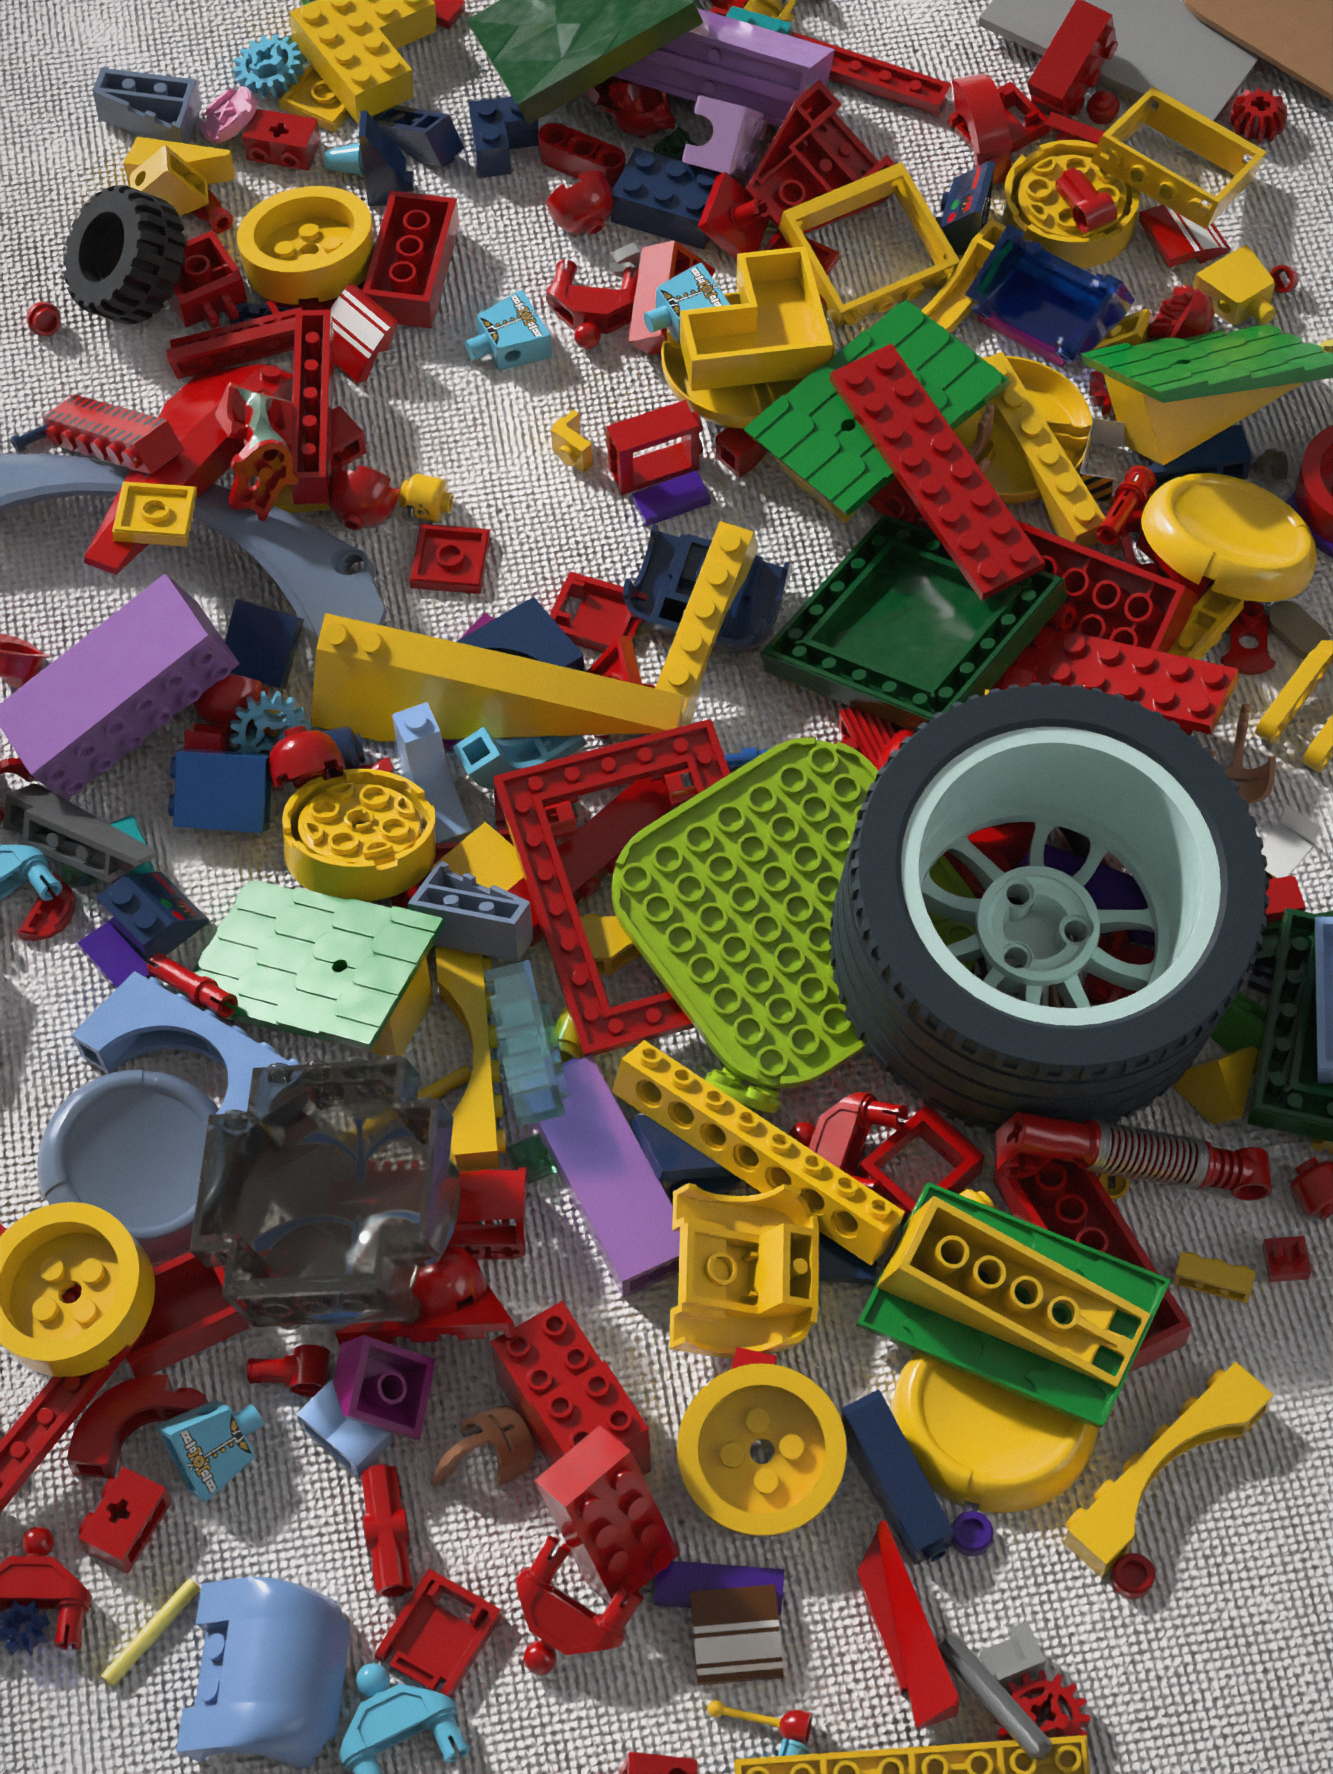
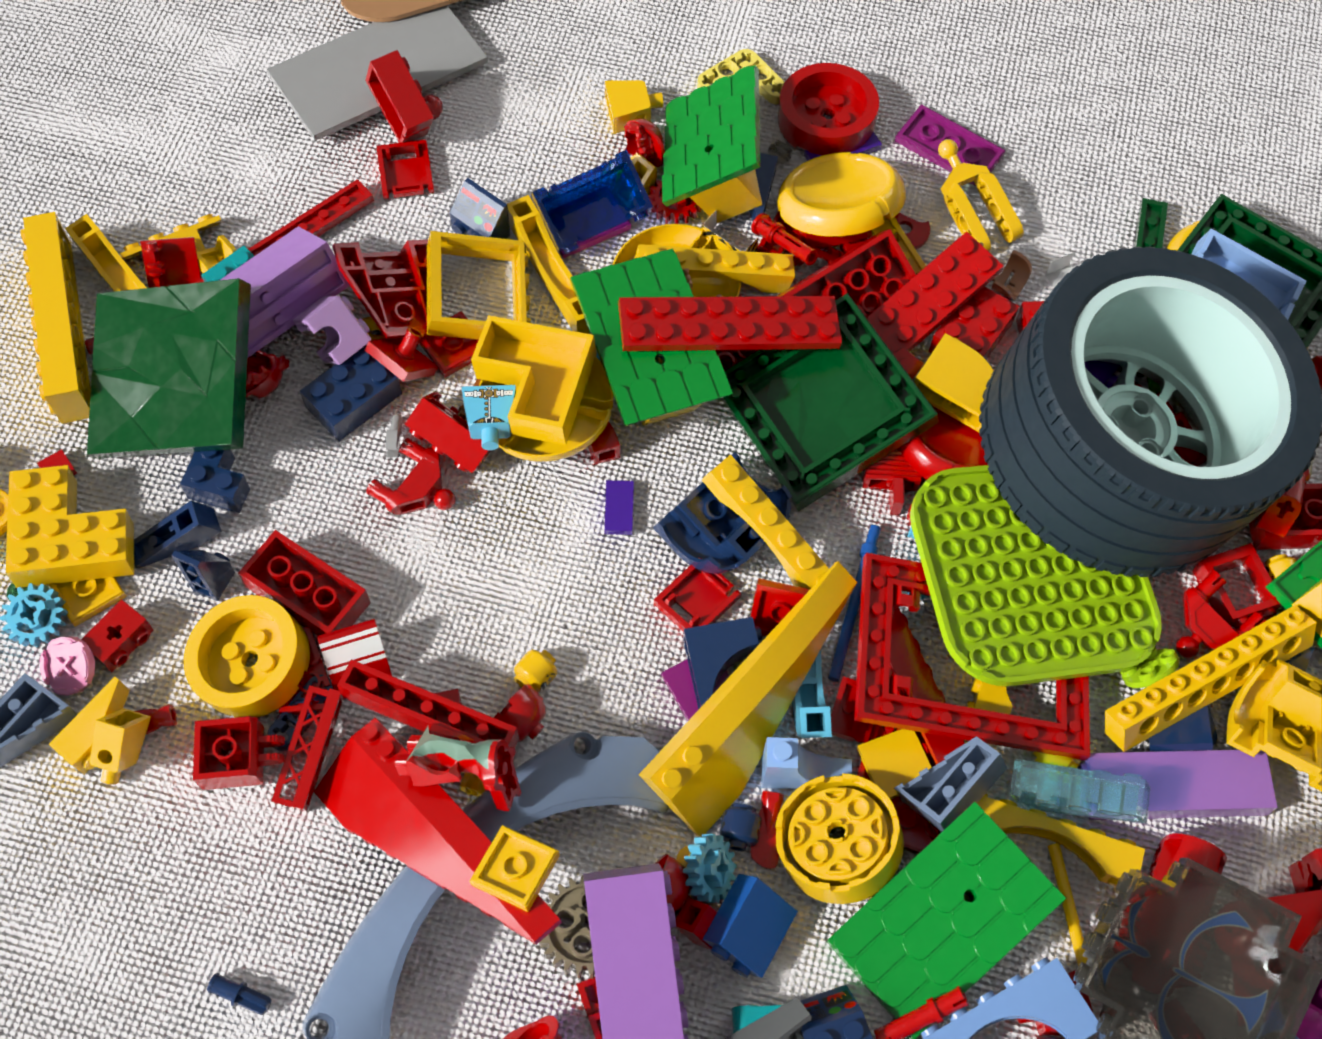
camera: 70 degrees left, 5 degrees up
(20, 442) = (303, 941): dark blue piece -> none
(43, 318) = (187, 895): red plate -> none
(112, 434) = (377, 878): red brick -> none
(124, 254) = (167, 827): black tyre -> none
(263, 642) = (621, 840): dark blue tile -> none
(303, 757) = (762, 850): red cylinder -> none
(344, 159) = (168, 593): medium azure cone -> none
(450, 558) = (595, 677): red tile -> none
(510, 334) = (413, 549): medium azure torso -> none
(533, 1155) = (1143, 834): clear green tile -> none
(569, 444) = (539, 553): yellow bracket -> none
(578, 153) = (280, 421): red beam -> none
(583, 205) = (326, 449): red cylinder -> none
(648, 431) = (582, 495): red window -> none
(674, 144) = (302, 370): clear green tile -> none
(987, 122) = (413, 167): red arch -> none
(1045, 217) = (513, 176): yellow brick -> none
(1073, 130) = (461, 122): red plate -> none
(1088, 206) = (534, 144): red piece -> none
(1180, 238) = (564, 113): red slope -> none
(1194, 133) = (508, 60): yellow window -> none
(1258, 115) = (494, 28): red gear -> none
(1281, 283) = (636, 72): red hinge -> none
(1295, 628) = (918, 198): dark tan tile -> none

